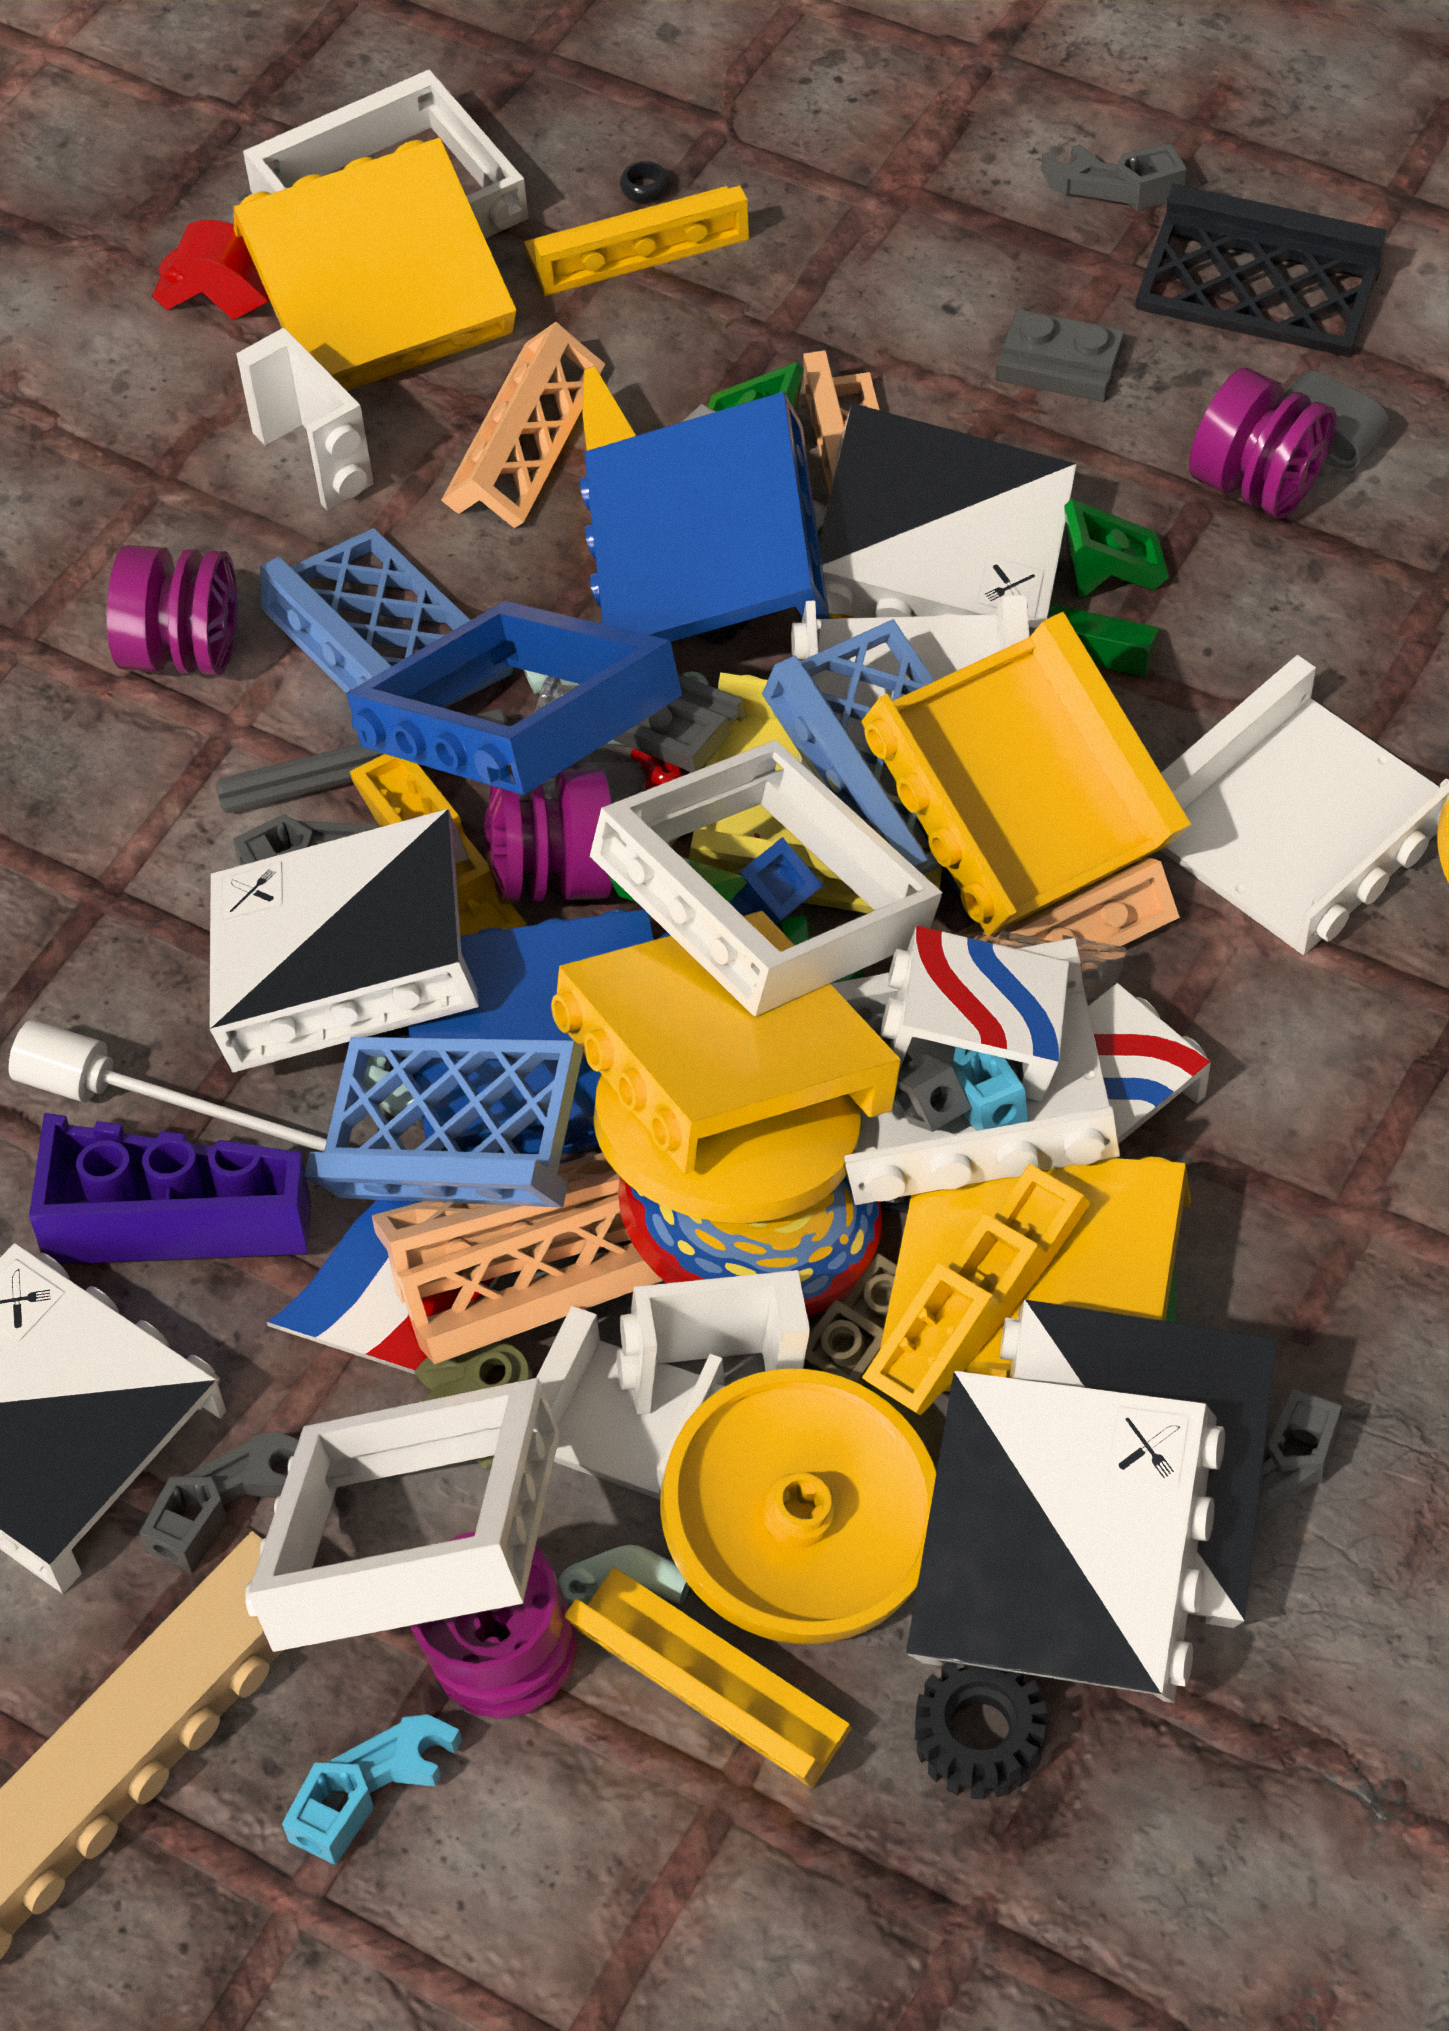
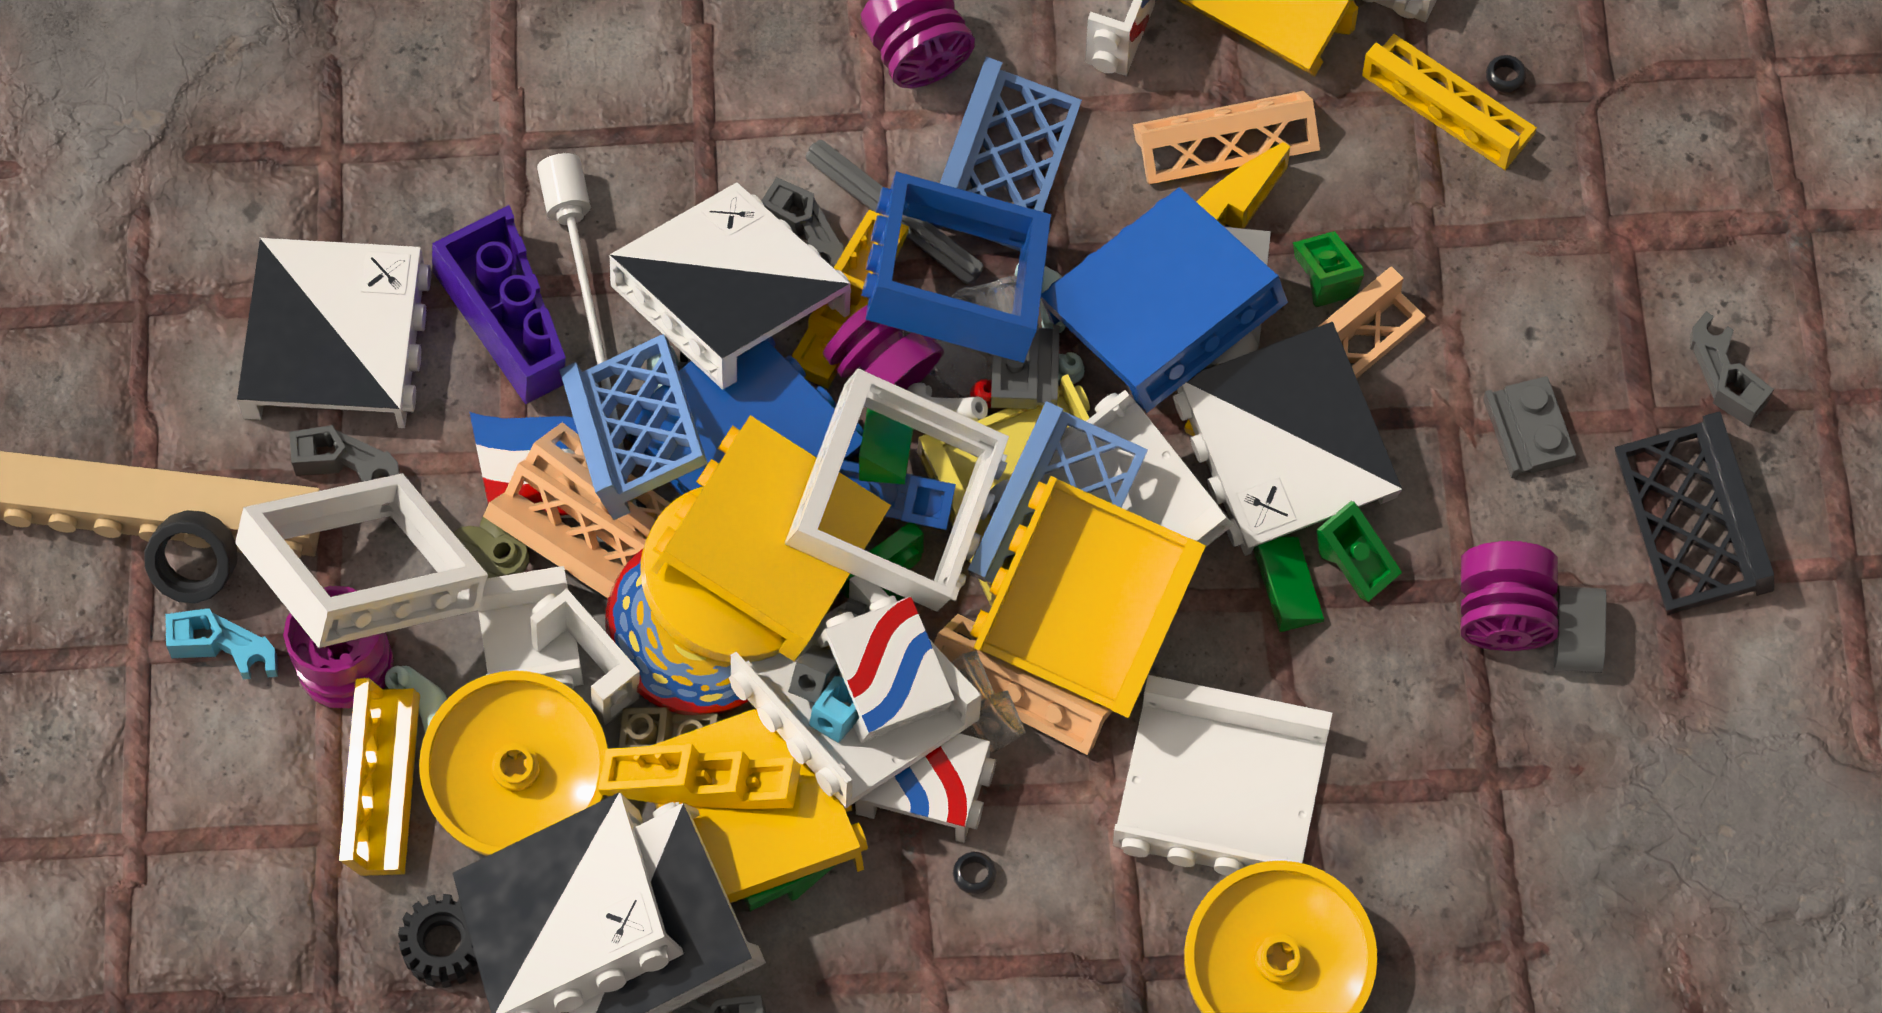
camera: 55 degrees right, 10 degrees up
(276, 1759) = (175, 585): none -> black tyre
(1250, 1118) = (974, 888): none -> black piece

